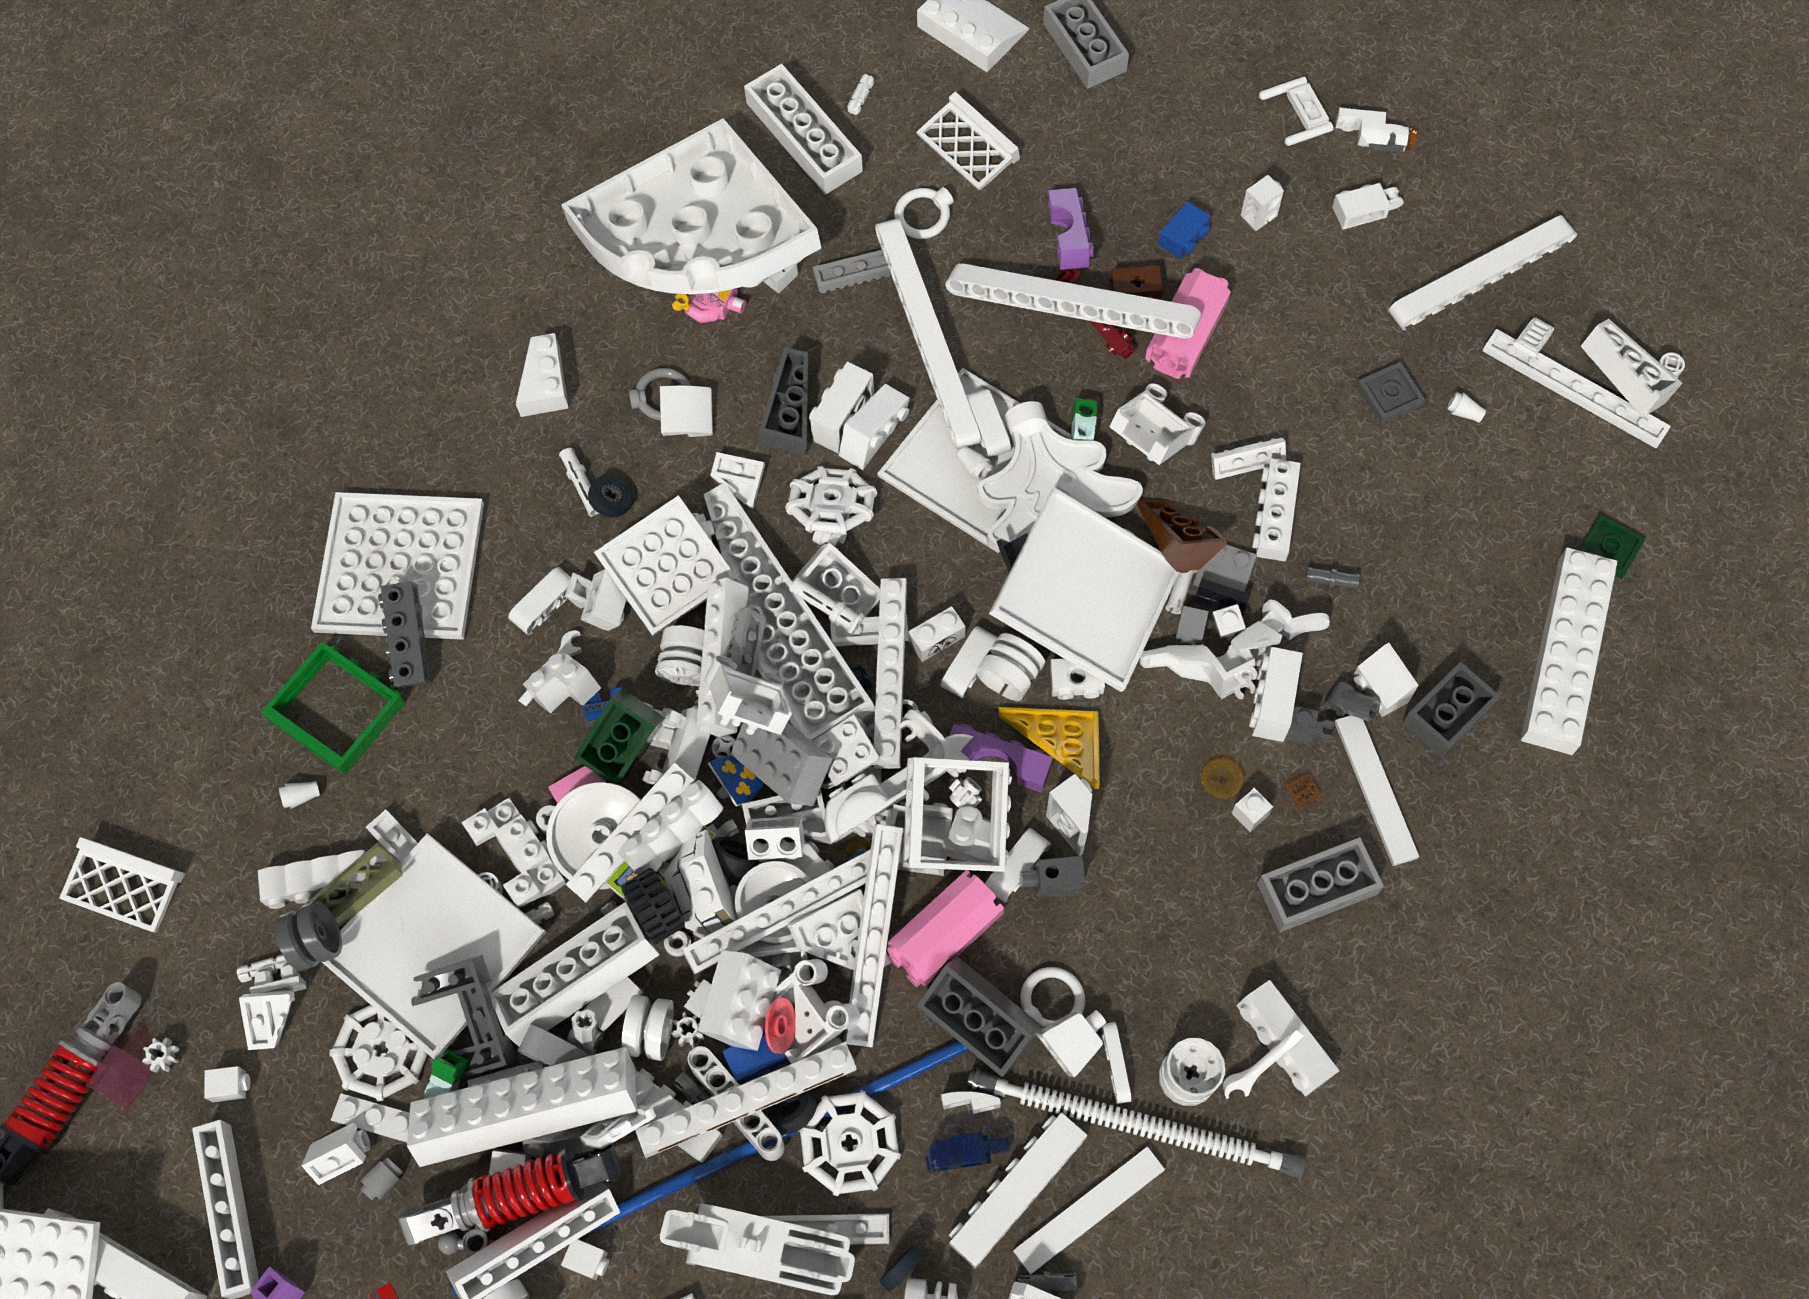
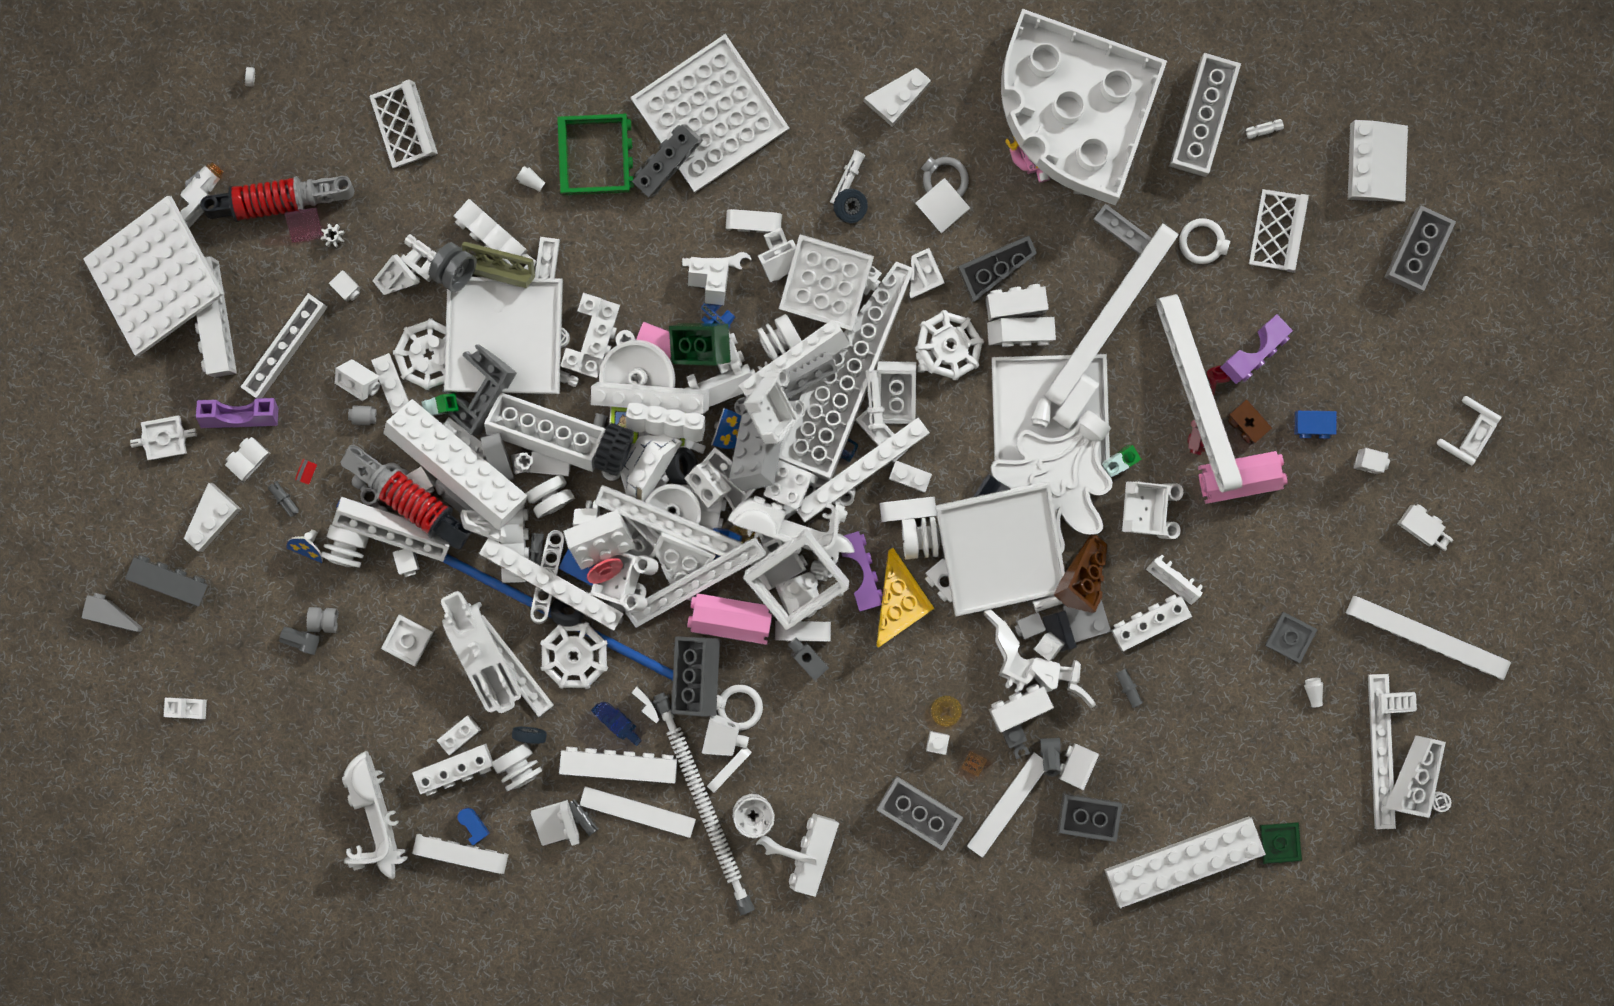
camera: 50 degrees right, 20 degrees up
(689, 1037) = (563, 514): white gear -> none
(1070, 811) = (853, 642): white slope -> none
(1374, 131) = (1488, 497): white plate -> none

